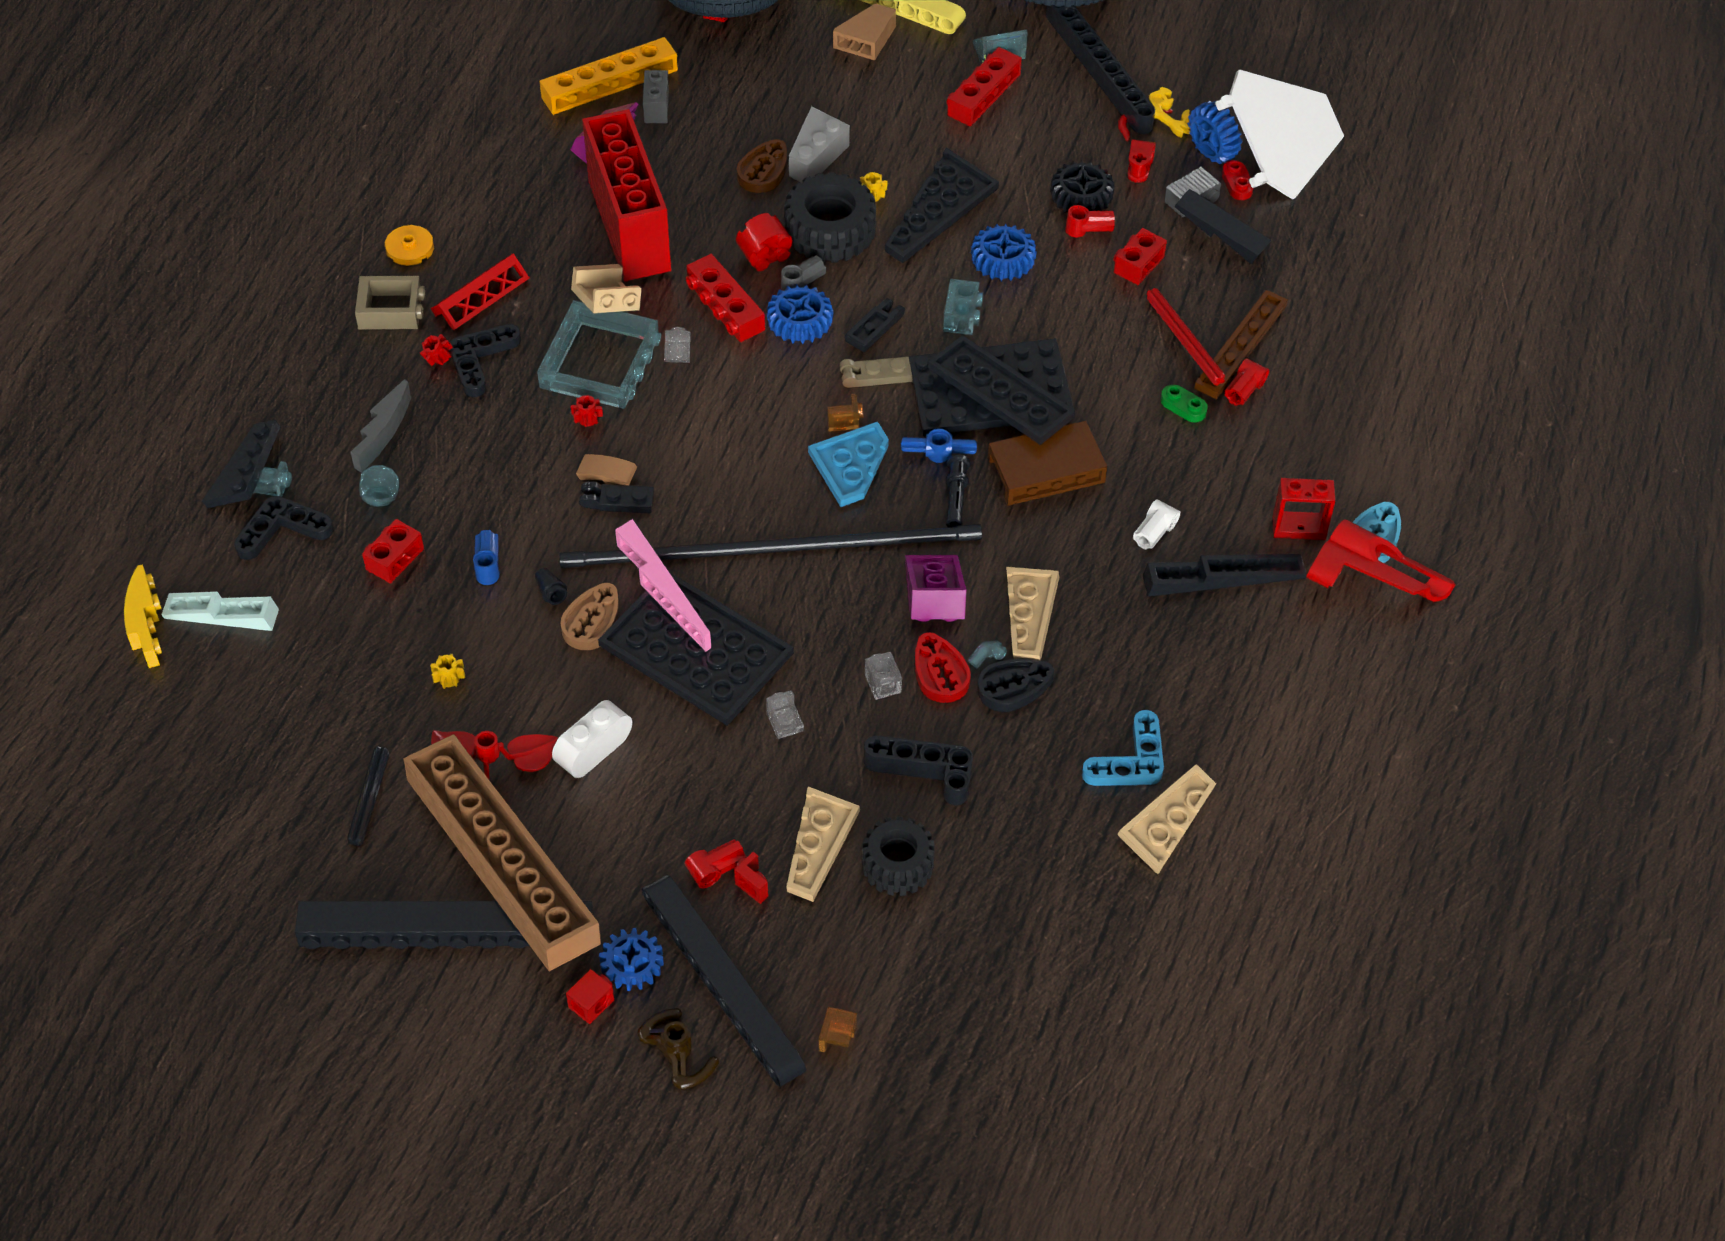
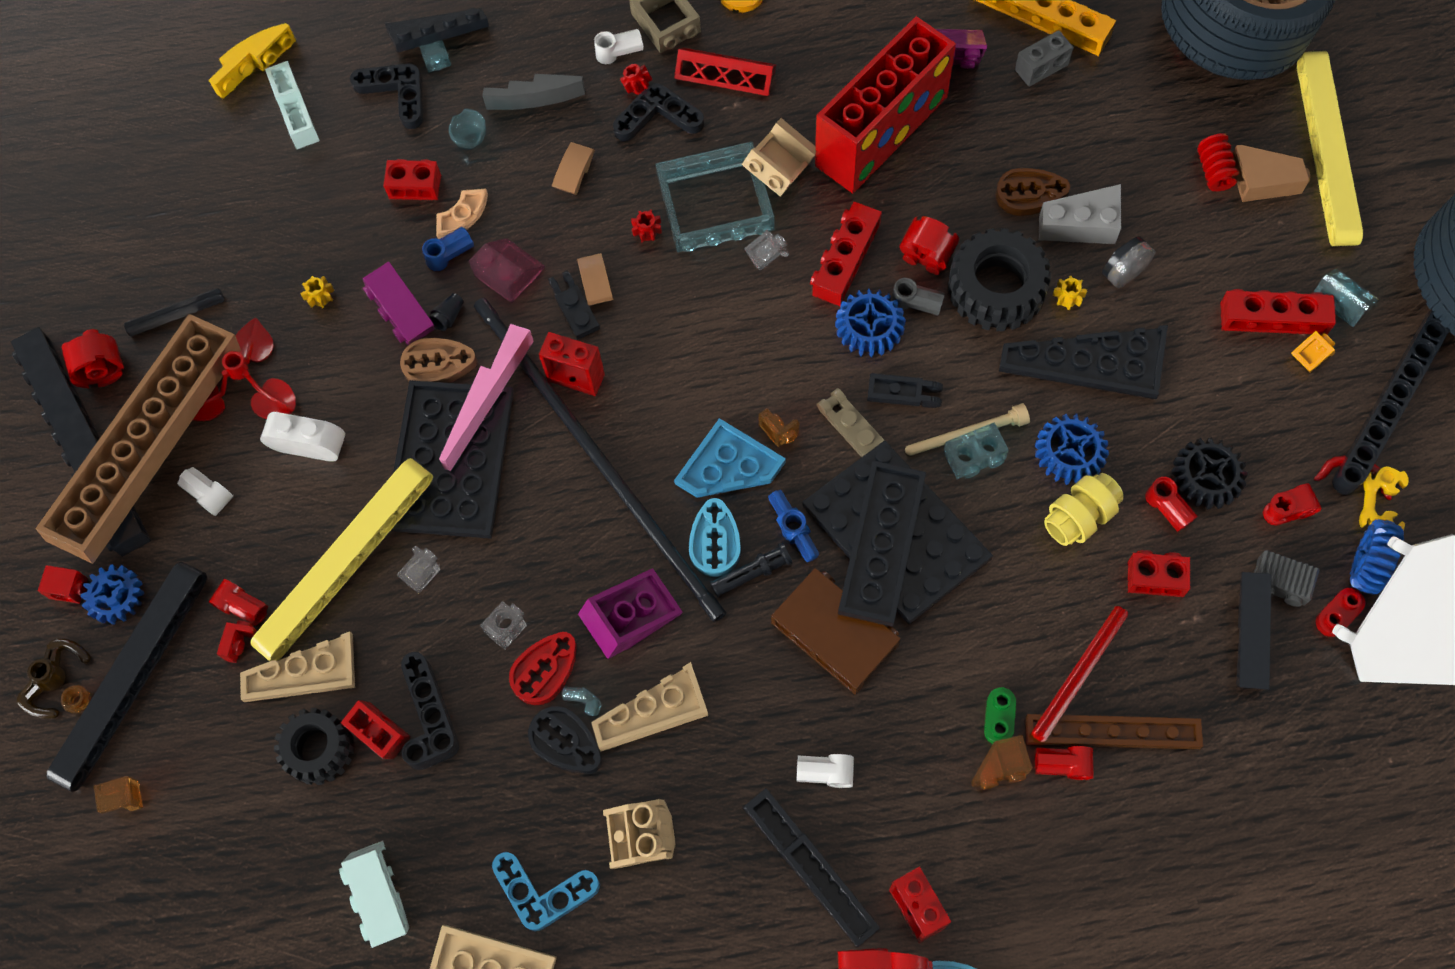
camera: 65 degrees right, 15 degrees up
(374, 869) = (92, 359): none -> red brick
(387, 348) = (610, 46): none -> white piece
(458, 535) = (464, 213): none -> light nougat tile
(484, 435) = (572, 168): none -> medium nougat slope
(514, 613) = (397, 304): none -> magenta wedge
(544, 527) = (505, 268): none -> clear pink slope
(590, 840) = (208, 493): none -> white piece
(699, 517) = (583, 363): none -> red window
(710, 1028) = (68, 697): none -> clear orange plate
(739, 761) = (341, 560): none -> light yellow beam
(834, 51) = (1218, 162): none -> red piece
(879, 137) = (1128, 262): none -> clear piece
(906, 515) = (729, 543): none -> medium azure piece
(917, 800) = (375, 729): none -> red brick
(950, 270) = (1017, 416): none -> tan piece
(1030, 84) = (1314, 350): none -> light orange bracket
(1059, 865) = (374, 895): none -> light aqua wedge
(1060, 266) = (1091, 502): none -> light yellow piece
(1127, 666) = (640, 833): none -> tan slope
(1221, 414) = (1003, 761): none -> clear orange slope

